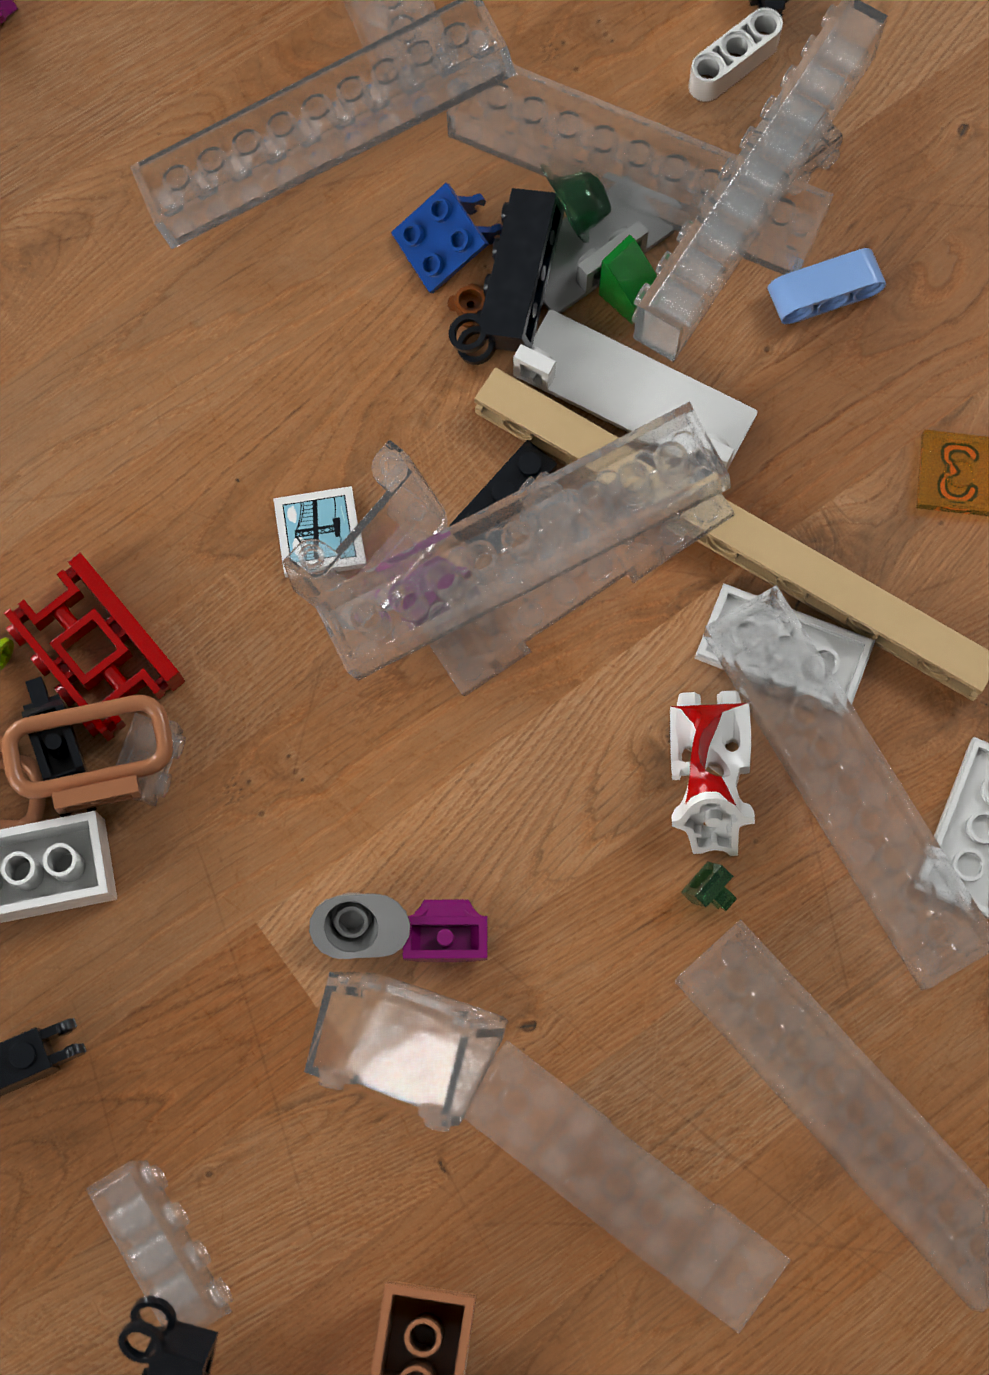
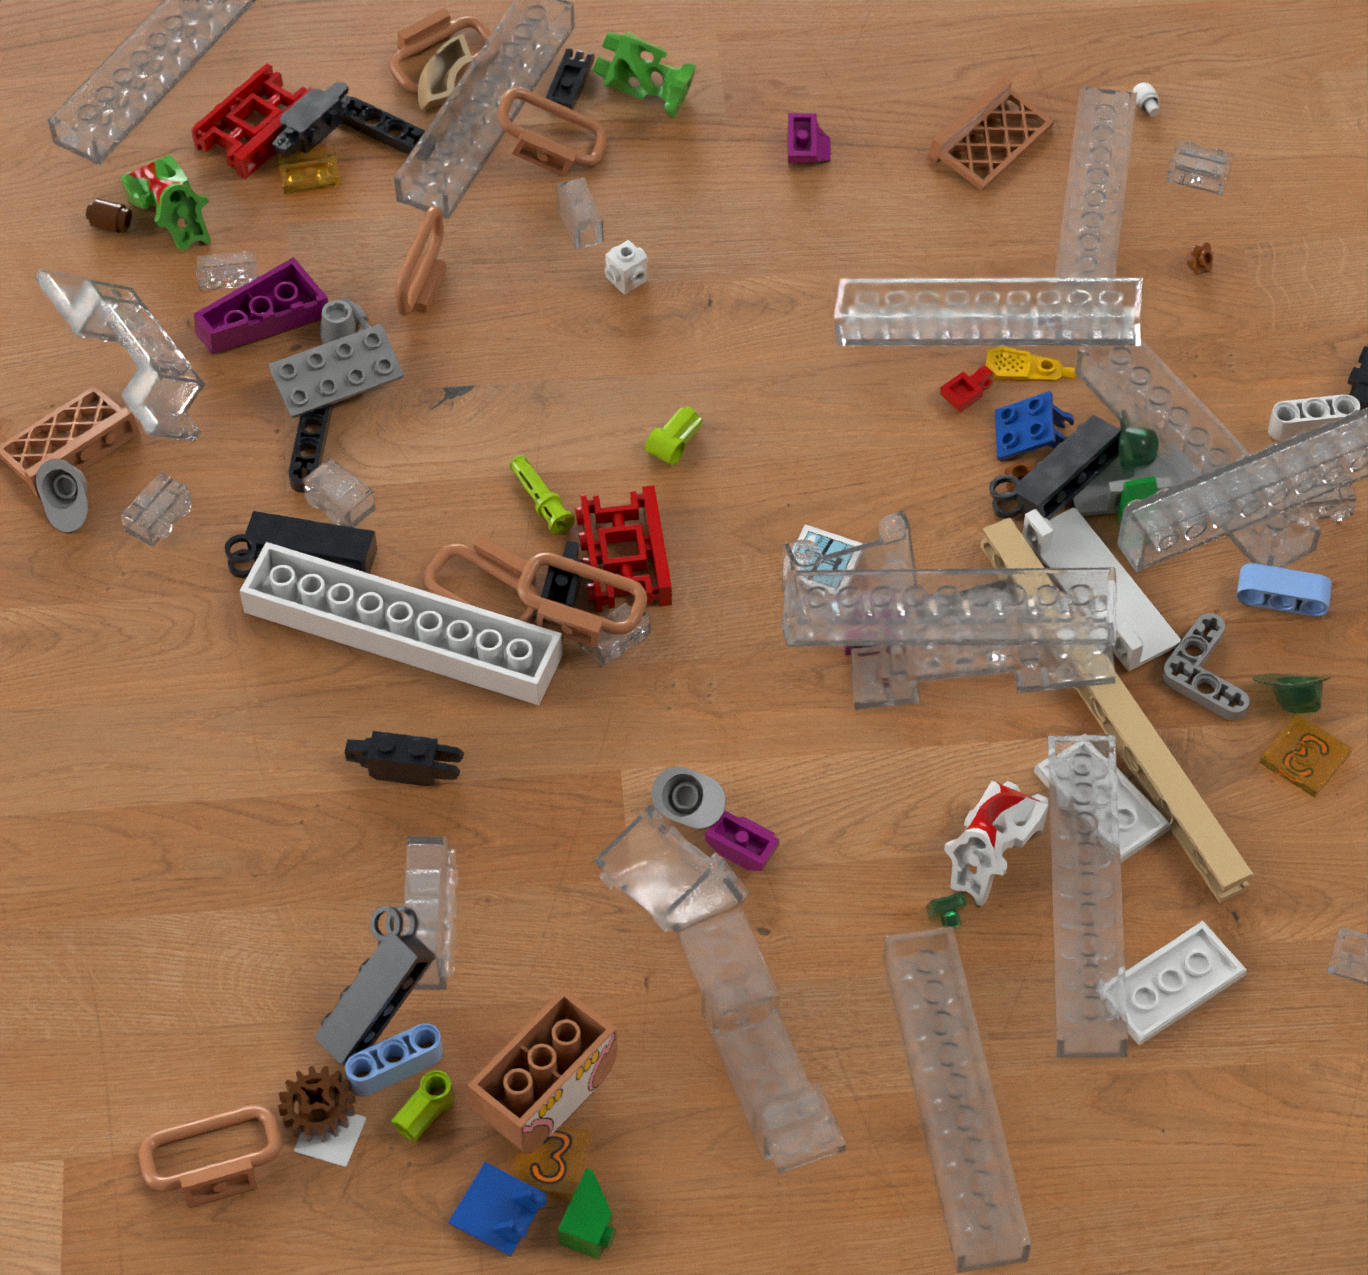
camera: 30 degrees right, 20 degrees down
(59, 479) = (671, 440): none -> lime piece
(346, 226) = (966, 390): none -> red plate
(396, 155) = (1028, 367): none -> yellow piece
(785, 437) = (1192, 667): none -> light grey beam
(907, 402) = (1295, 692): none -> clear green piece

